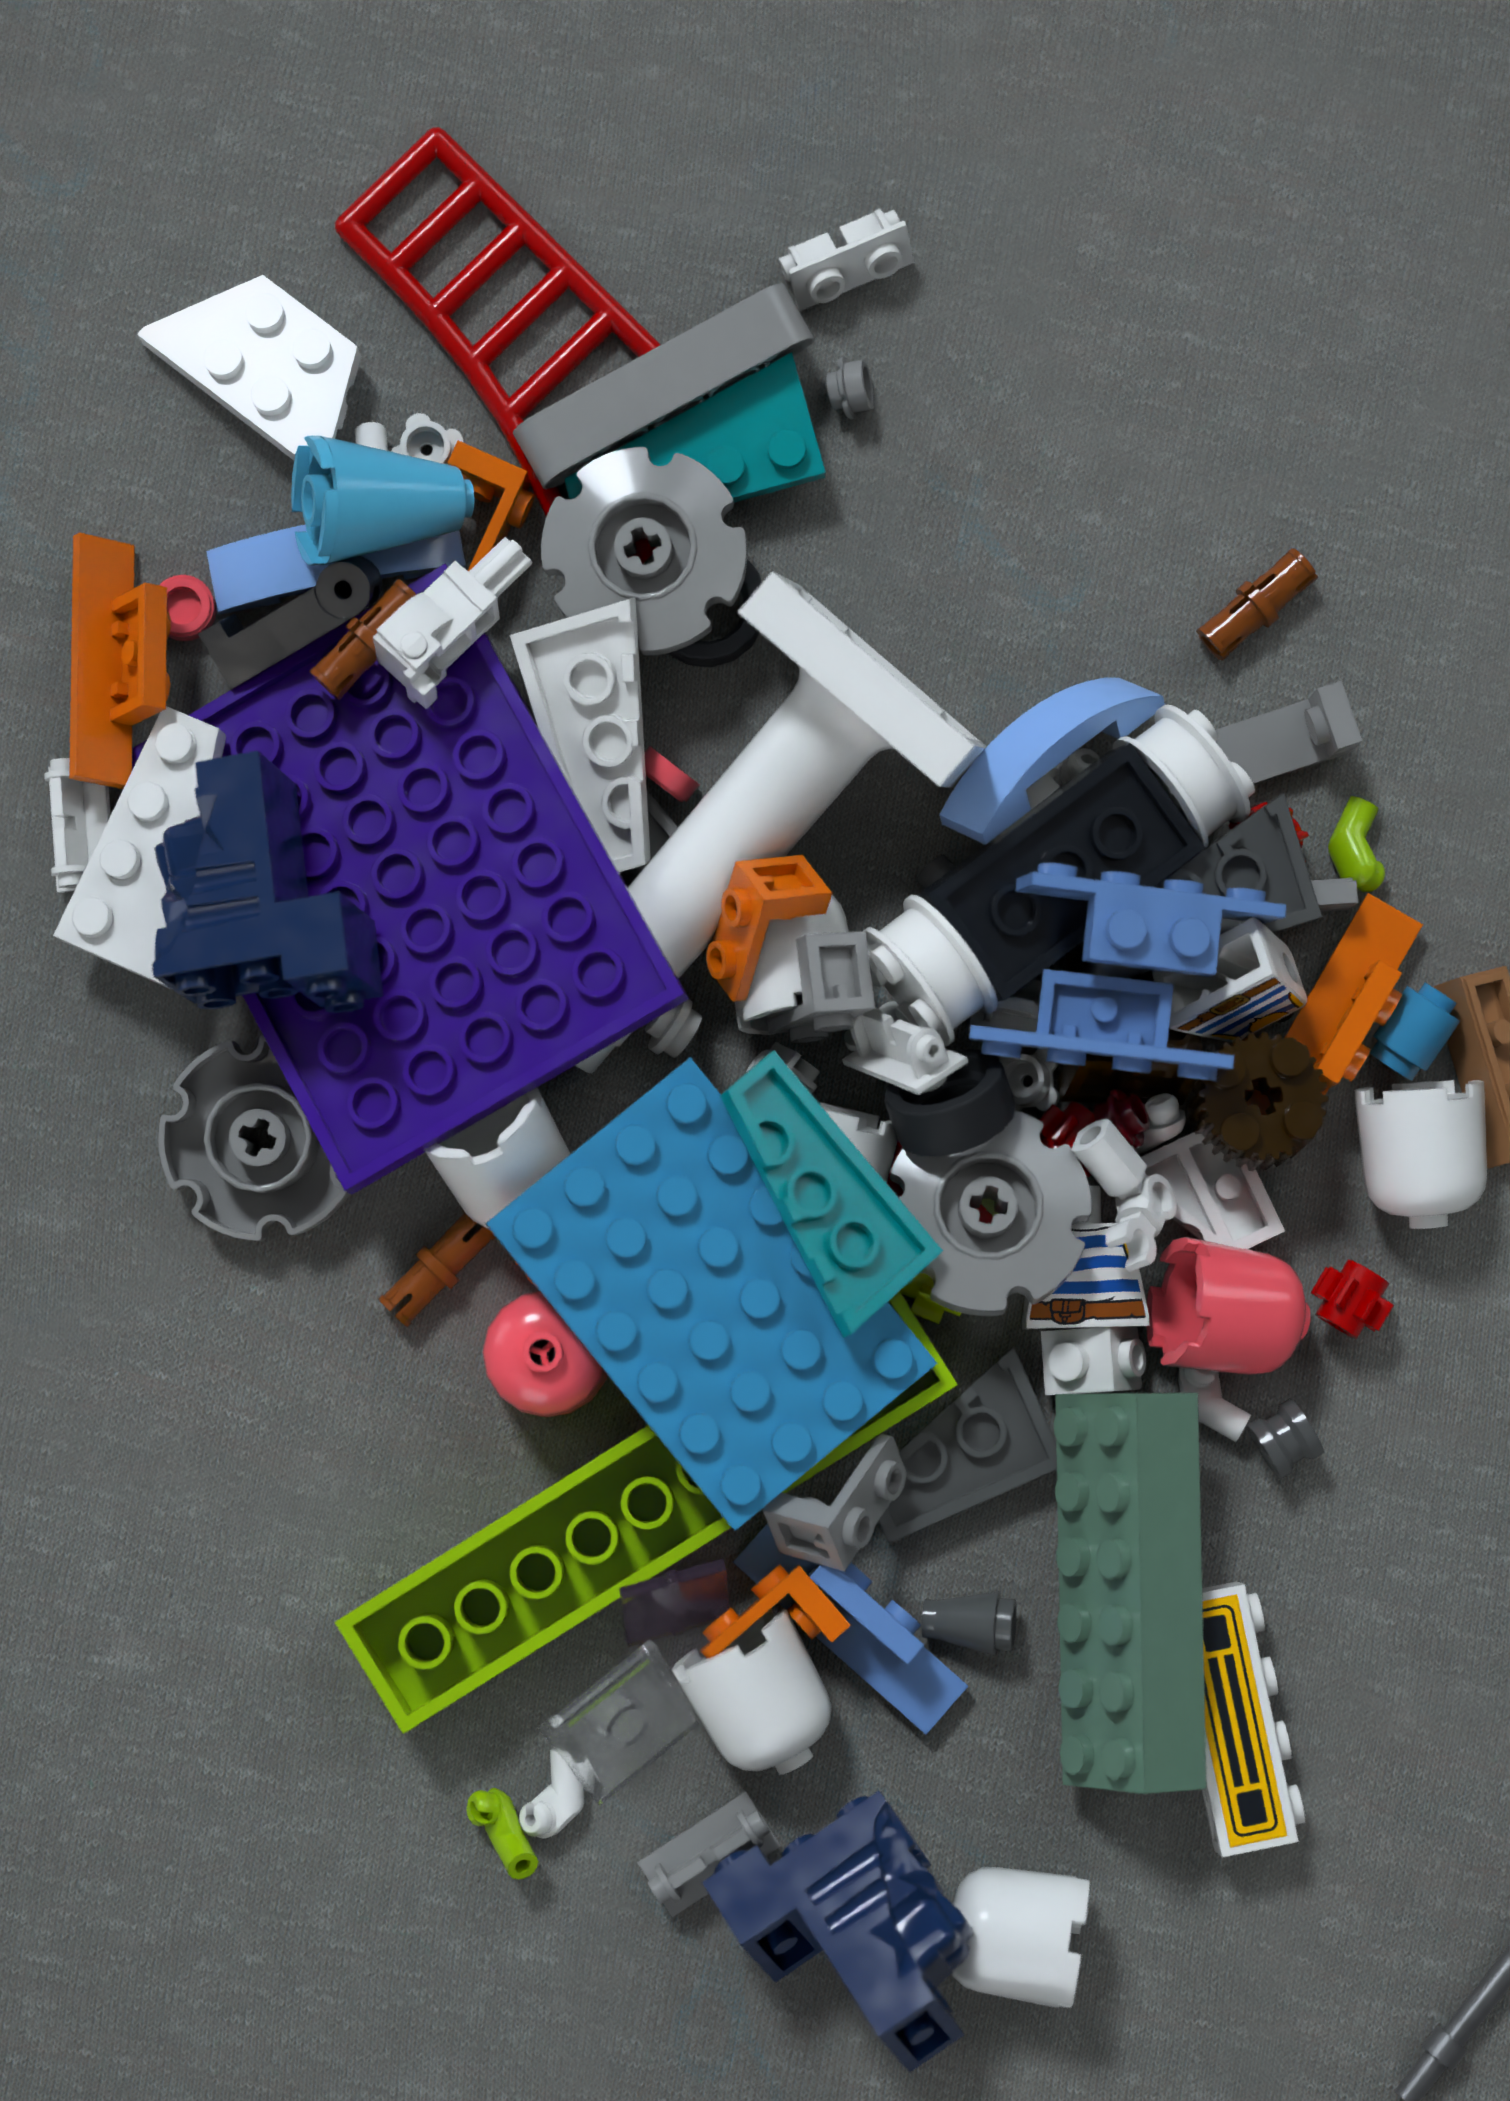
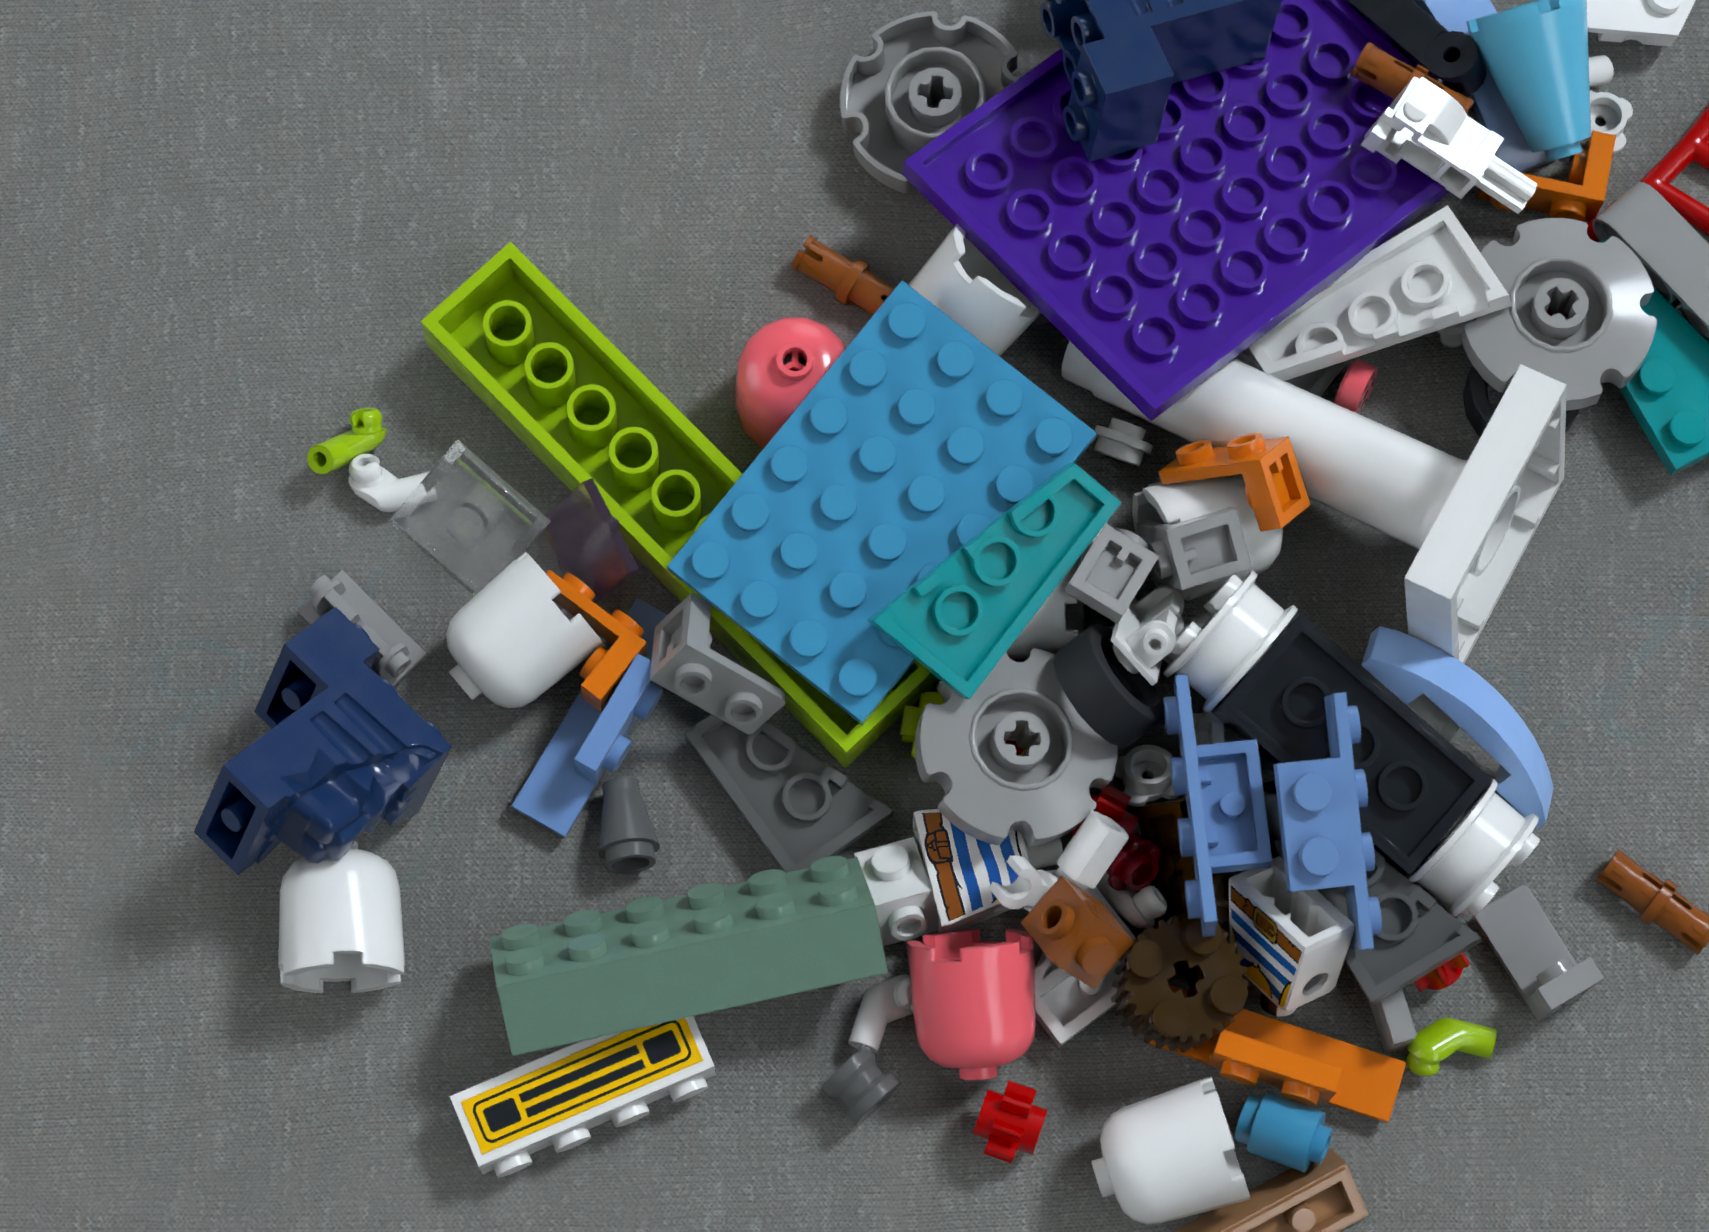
camera: 80 degrees right, 10 degrees down
(841, 1074) = (1112, 572): none -> light grey bracket
(1194, 1193) = (1077, 932): none -> dark orange brick

